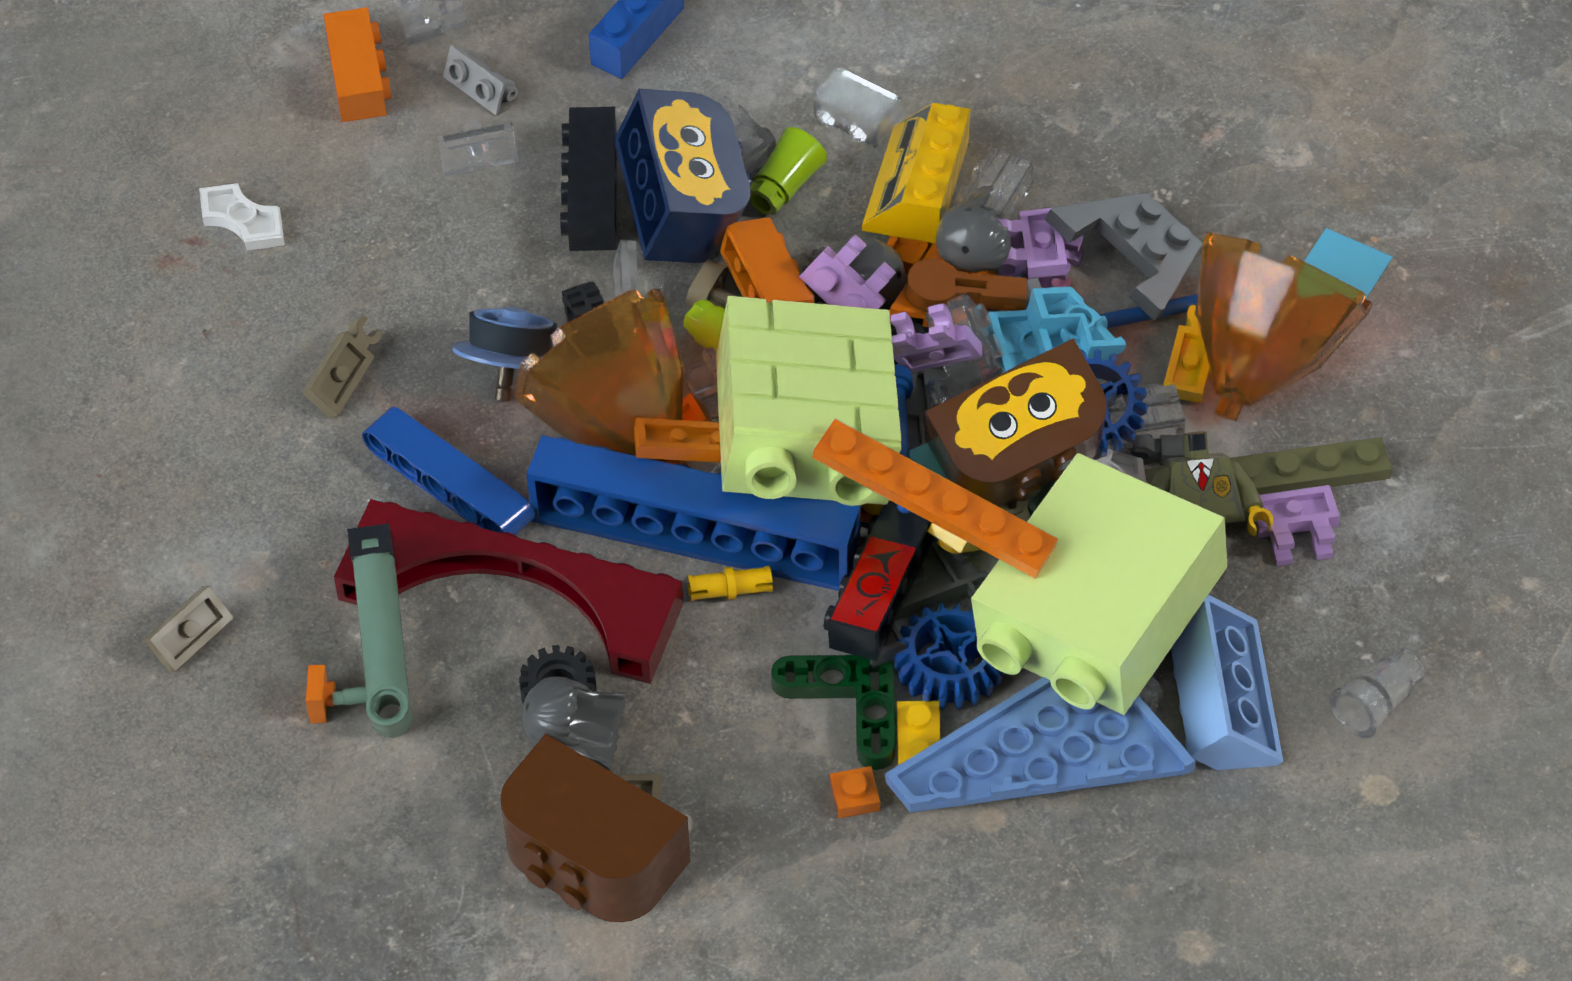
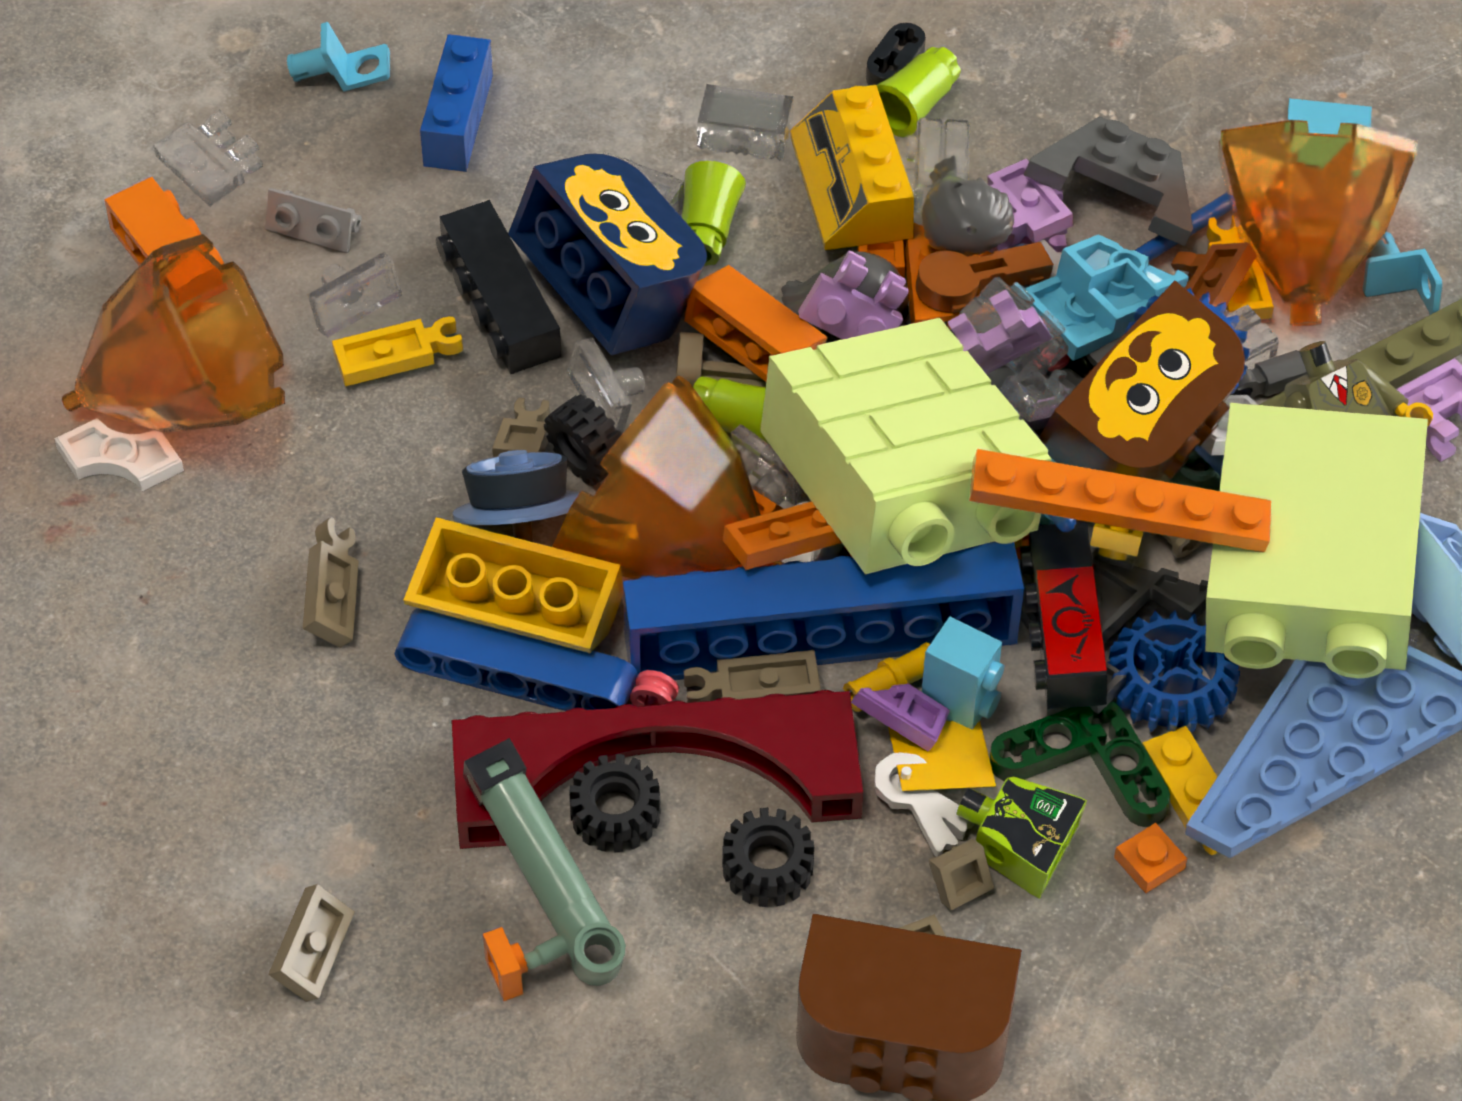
camera: 25 degrees left, 0 degrees up
(318, 144) = (180, 346): none -> clear orange piece
(465, 624) = (614, 827): none -> black tyre
(469, 413) = (516, 586): none -> yellow slope
(486, 202) = (394, 349): none -> yellow plate
(540, 529) = (653, 689): none -> coral bush
(547, 300) = (524, 431): none -> dark tan plate
(574, 717) = (814, 880): dark grey piece -> none
(624, 546) = (755, 677): none -> dark tan plate
(696, 751) = (961, 874): none -> dark tan tile
(697, 668) = (931, 809): none -> white piece
(720, 612) = (905, 711): none -> medium lavender tile
(735, 656) = (953, 762): none -> yellow sticker
(763, 735) = (1024, 829): none -> torso
(775, 598) = (963, 672): none -> medium azure brick
(1010, 89) = (888, 53): none -> black beam
(1010, 122) = (918, 88): none -> lime plant
(1161, 352) = (1216, 271): none -> dark orange plate
(1324, 397) = (1401, 271): none -> medium azure bracket

